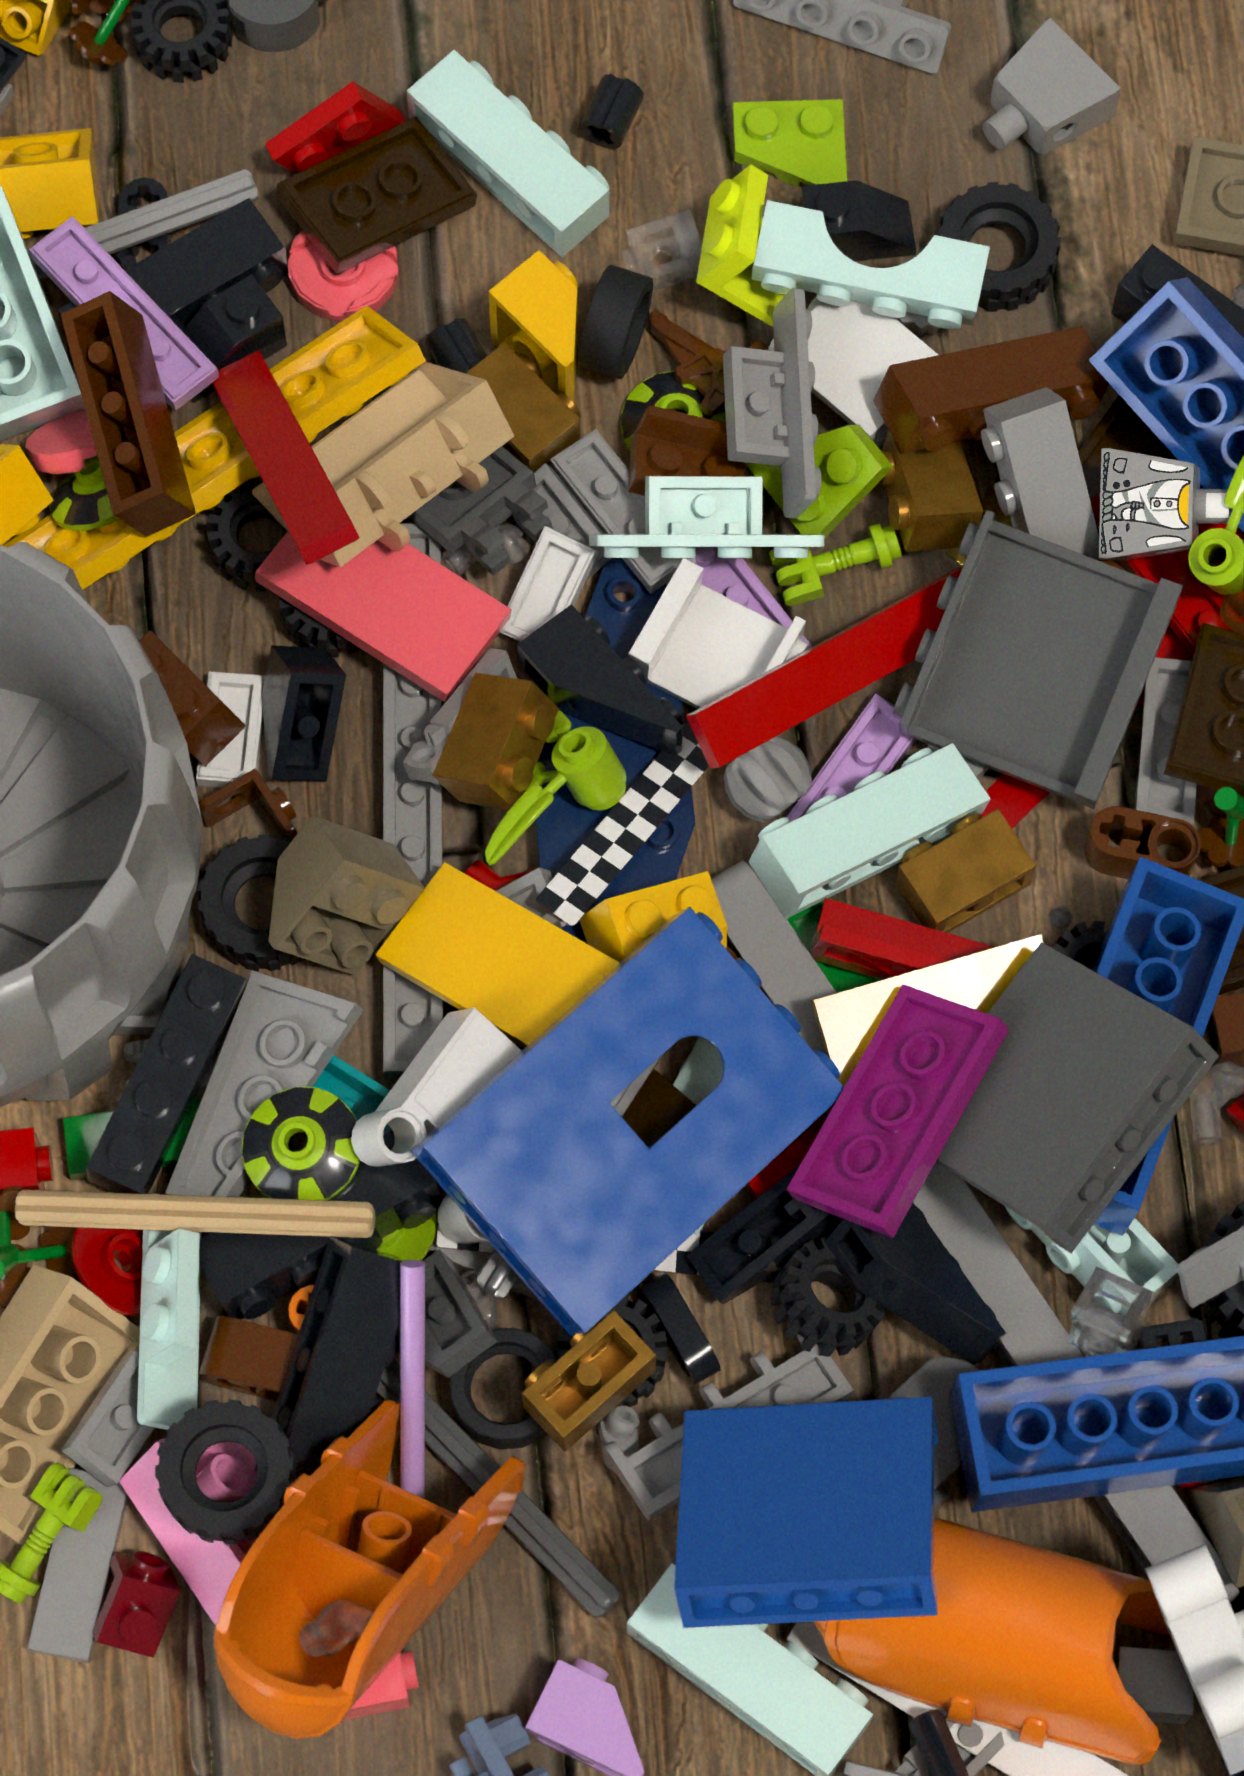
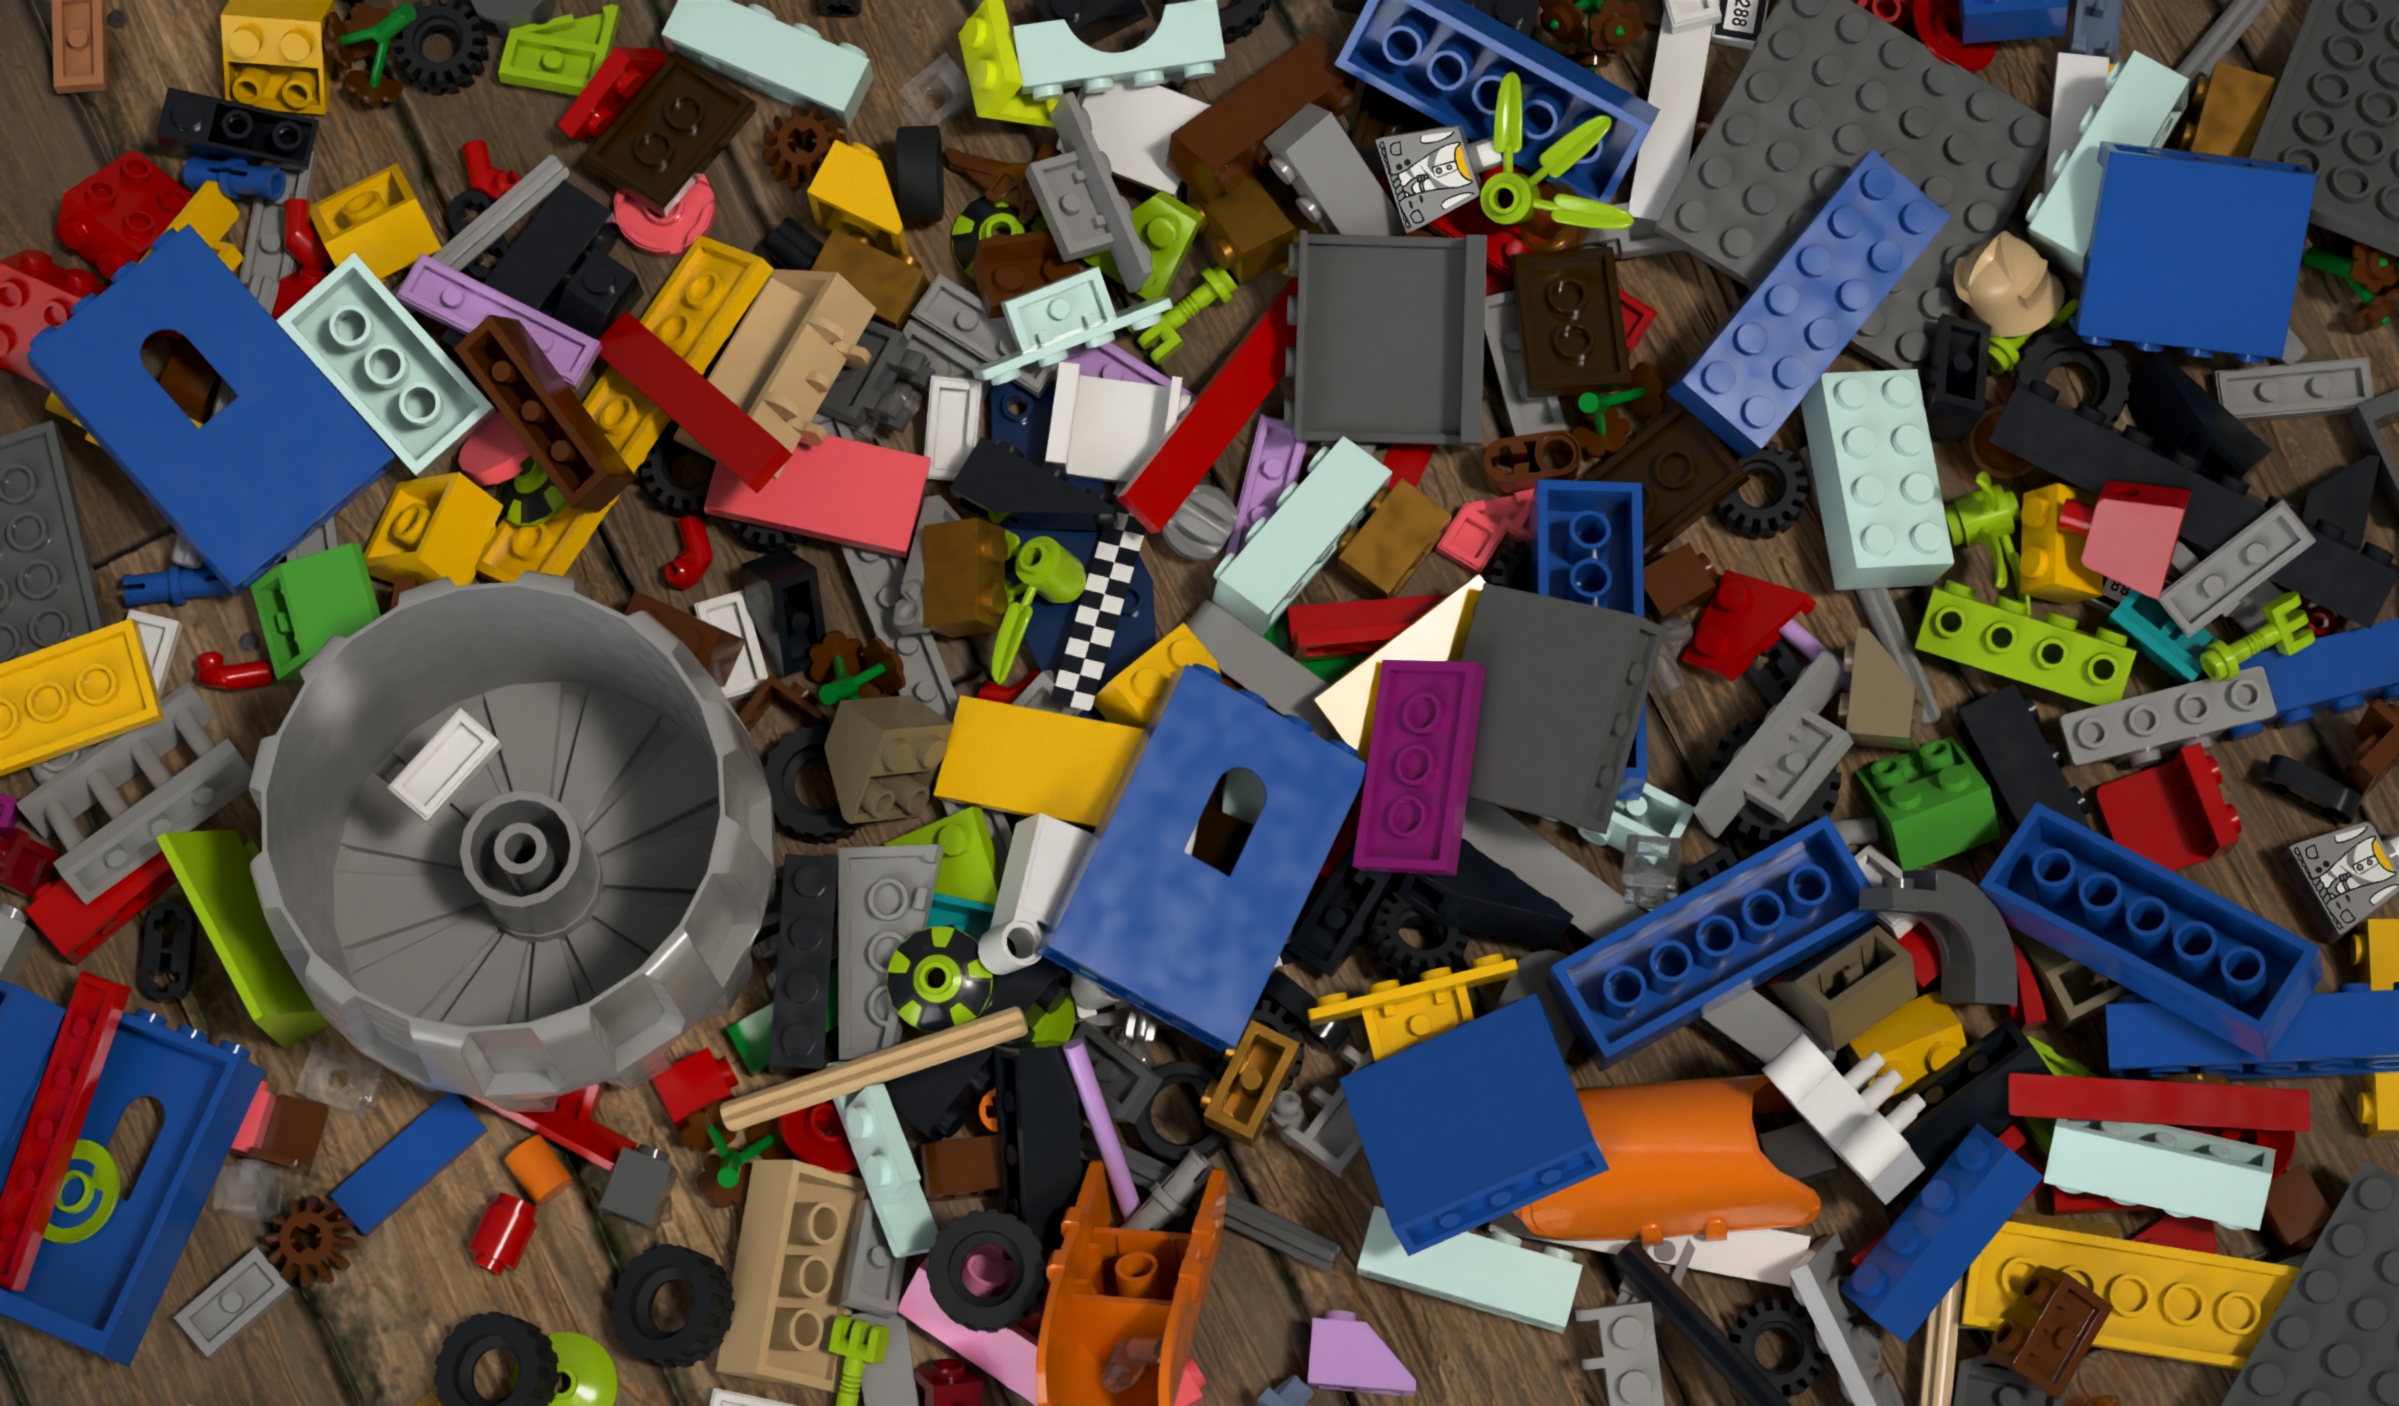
camera: 15 degrees left, 5 degrees up
(171, 166) = (482, 175): none -> red arm
(229, 627) = (694, 558): none -> red arm
(296, 75) = (560, 53): none -> lime wing
(335, 789) = (847, 669): none -> reddish brown plant
(385, 1033) = (969, 859): none -> lime wing
(460, 1469) = (1172, 1195): none -> light grey pin
(490, 246) = (804, 131): none -> reddish brown gear
(793, 1369) = (1414, 1012): none -> yellow bracket
(1065, 896) = (1482, 528): none -> coral tile

